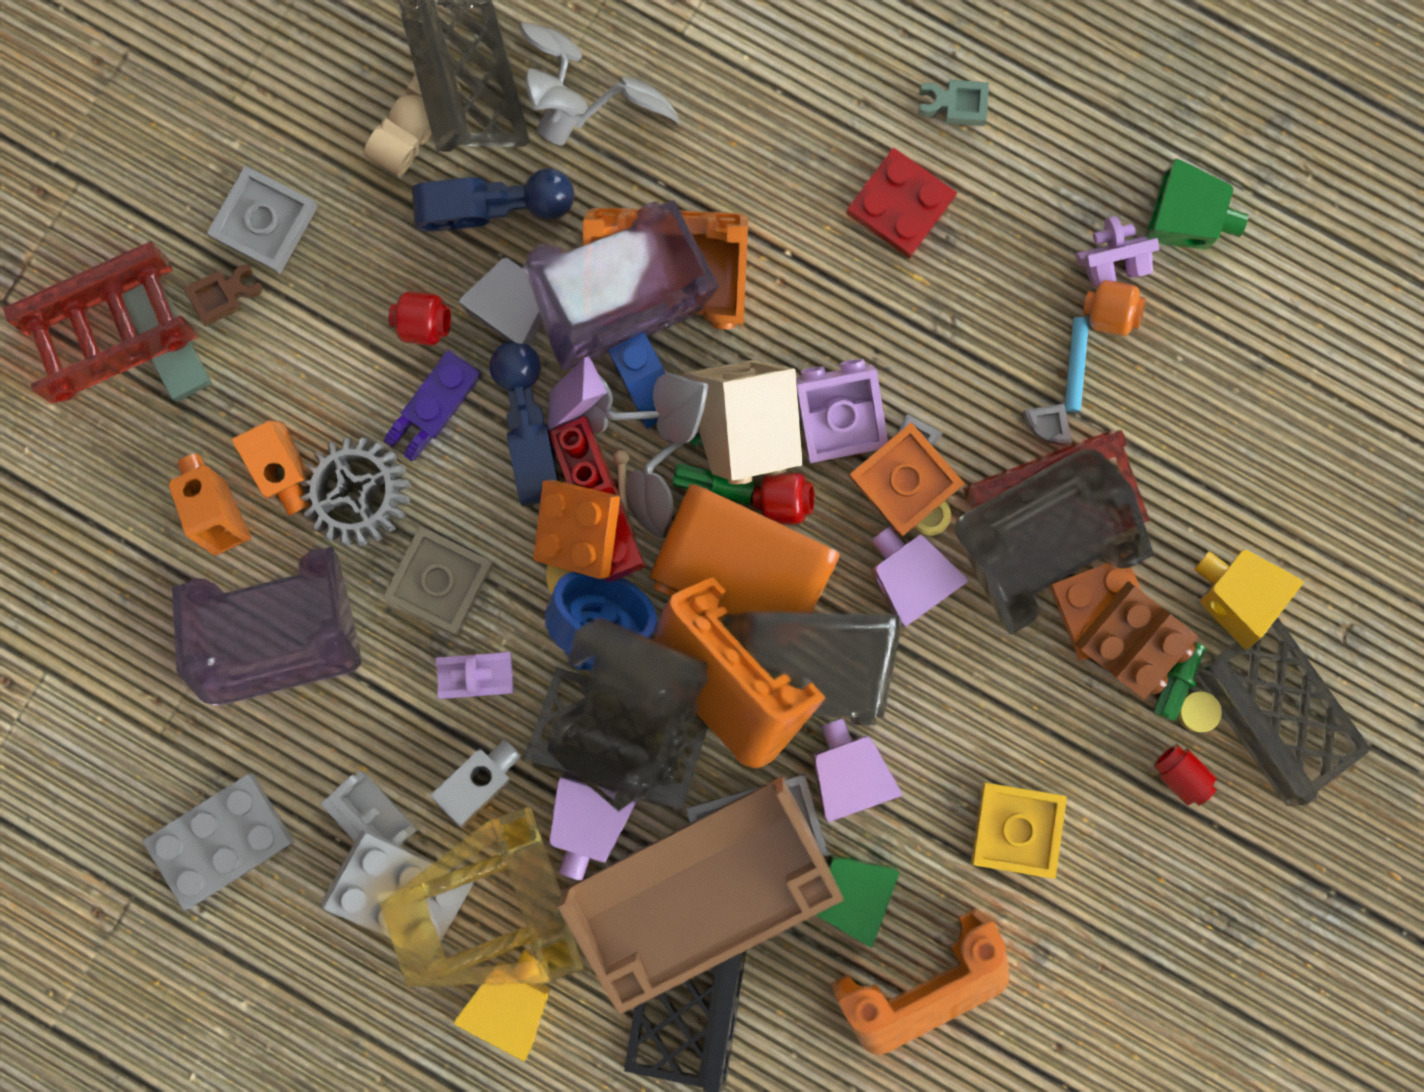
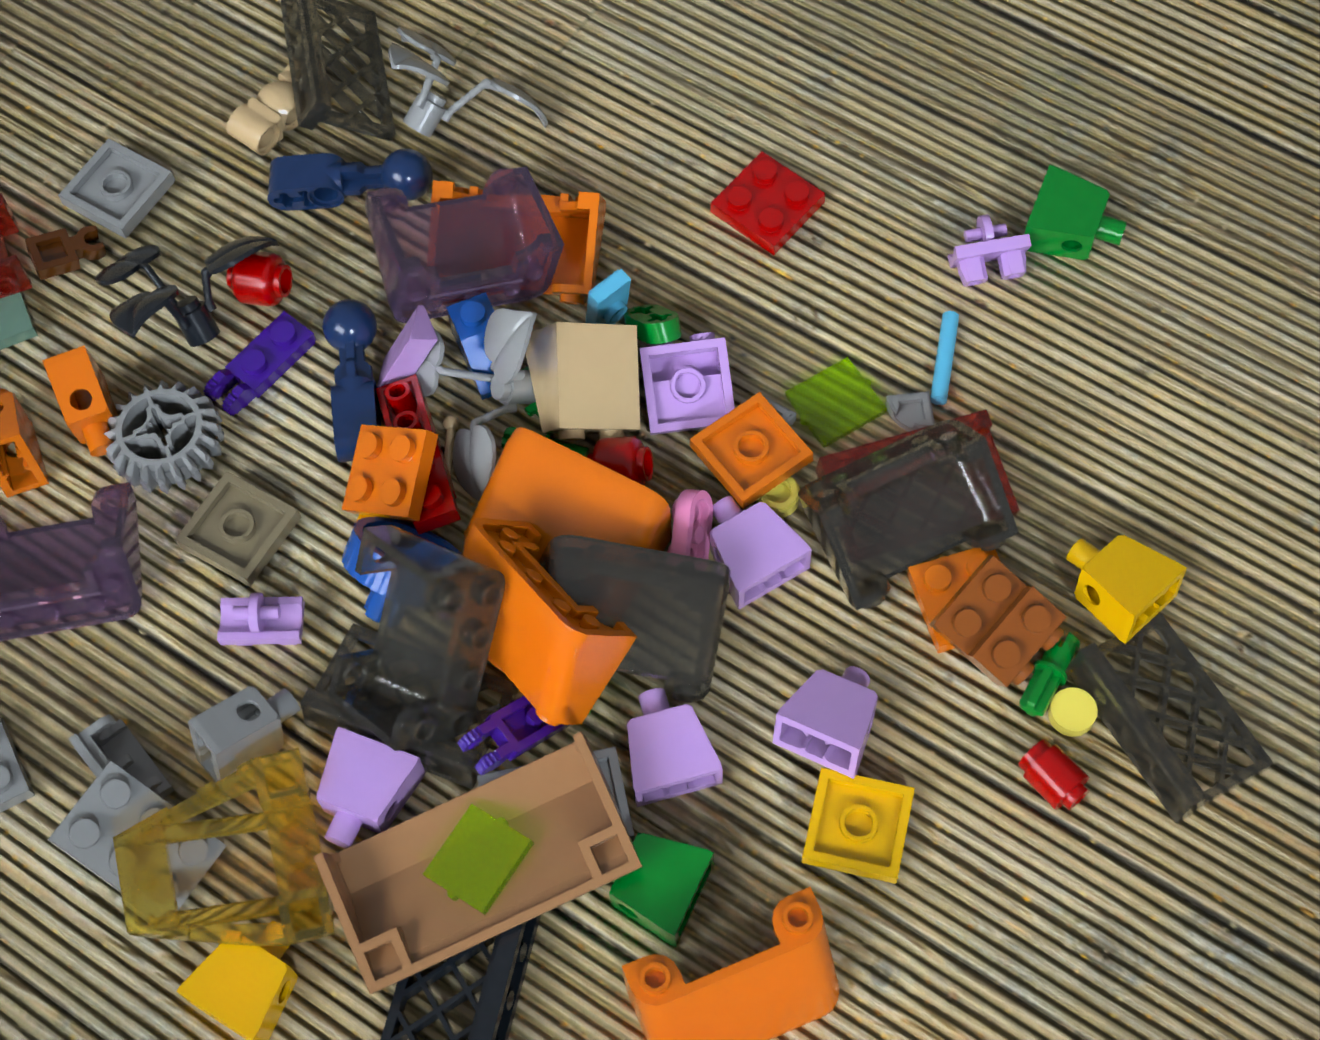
camera: 10 degrees right, 20 degrees down
(324, 382) = (190, 313): none -> black plant
(504, 303) = (346, 268): light grey torso -> none
(698, 892) = (478, 859): none -> clear neon green piece
(716, 771) = (513, 729): none -> dark purple hinge
(762, 337) = (609, 299): none -> medium azure plate
(804, 352) = (654, 323): none -> green beam
(857, 564) = (692, 524): none -> bright pink plate
(962, 102) = (833, 115): sand green plate -> none
(977, 415) = (835, 402): none -> clear neon green piece
(994, 740) = (829, 719): none -> lavender torso
(1114, 308) = (985, 302): orange head -> none

